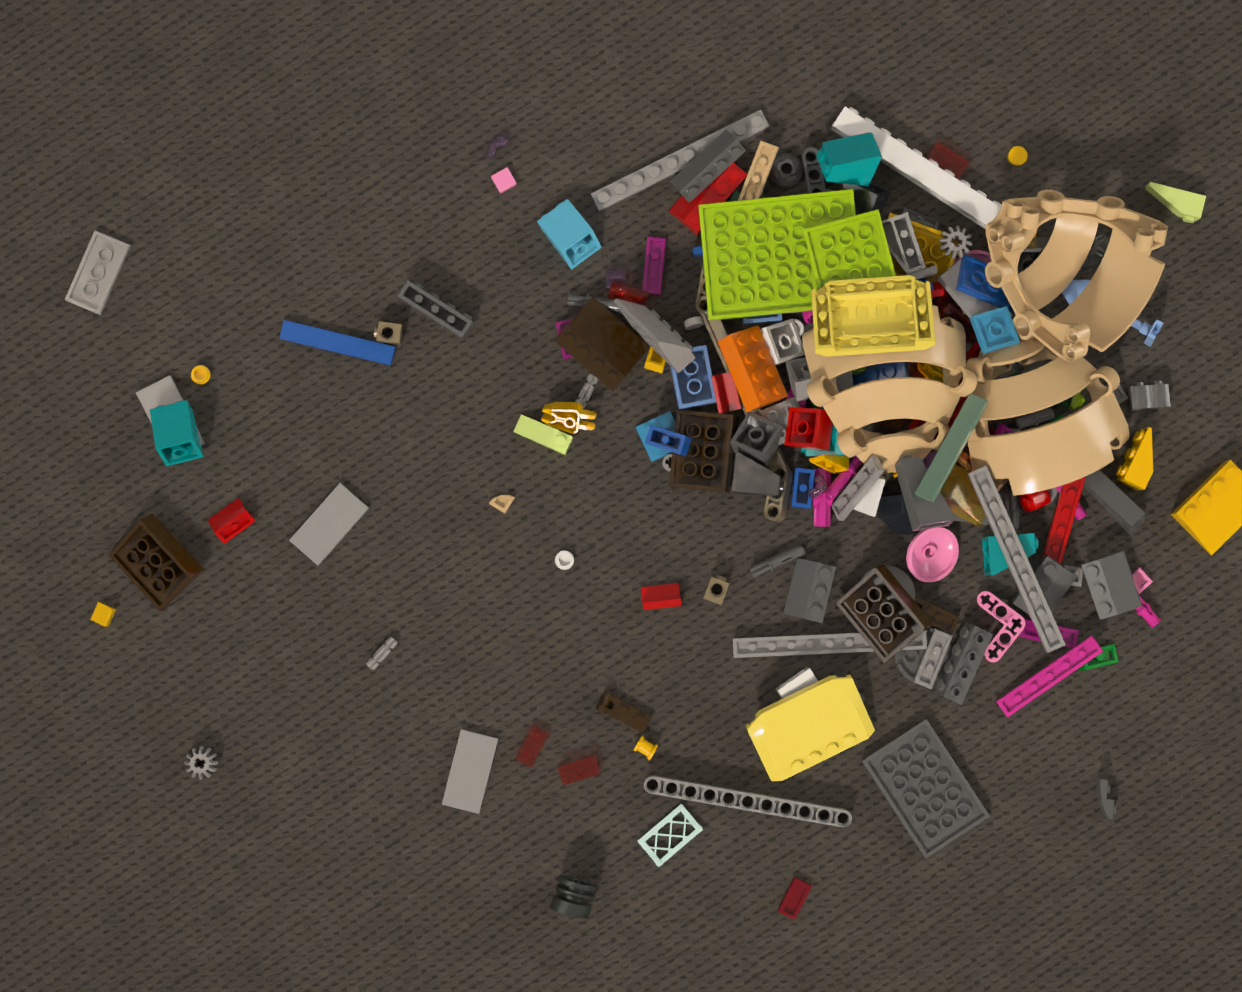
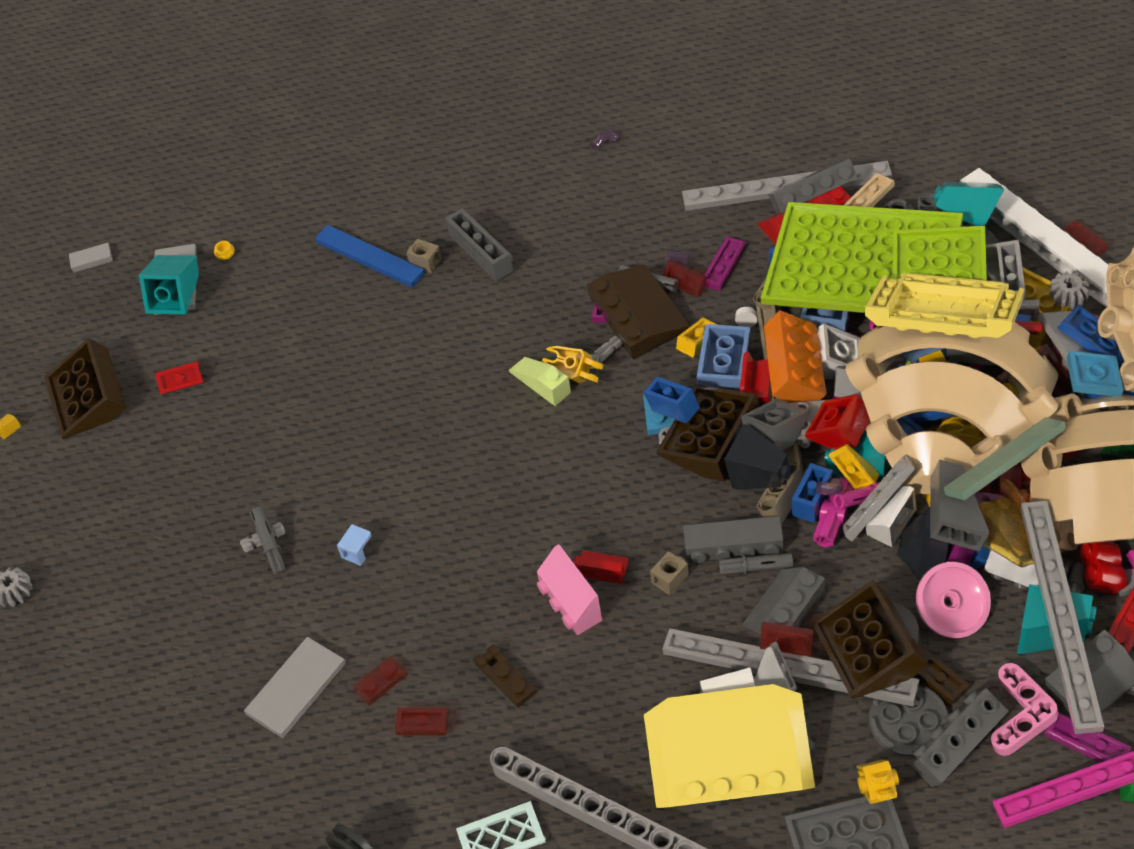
camera: 30 degrees right, 35 degrees down
(77, 415) = (90, 257): none -> light grey tile
(97, 272) = (179, 156): light grey tile -> none
(329, 524) = (275, 404): light grey tile -> none
(388, 656) = (267, 539): none -> dark grey axle
(462, 640) = (352, 544): none -> light blue panel
(502, 502) = (466, 431): tan tile -> none
(503, 180) = (599, 165): bright pink tile -> none
(564, 560) = (507, 501): white tile -> none
(569, 233) = (646, 216): medium azure slope -> none
(645, 747) = (513, 719): yellow bush -> none
(647, 635) = (569, 591): none -> bright pink slope
(657, 334) = (695, 298): light grey slope -> none
(754, 545) = (733, 539): none -> dark grey brick
(824, 627) = (789, 638): none -> clear red plate
(824, 661) = (774, 669): none -> light grey slope
(919, 720) = (877, 781): none -> yellow hinge
(932, 658) = (918, 722): light grey tile -> none

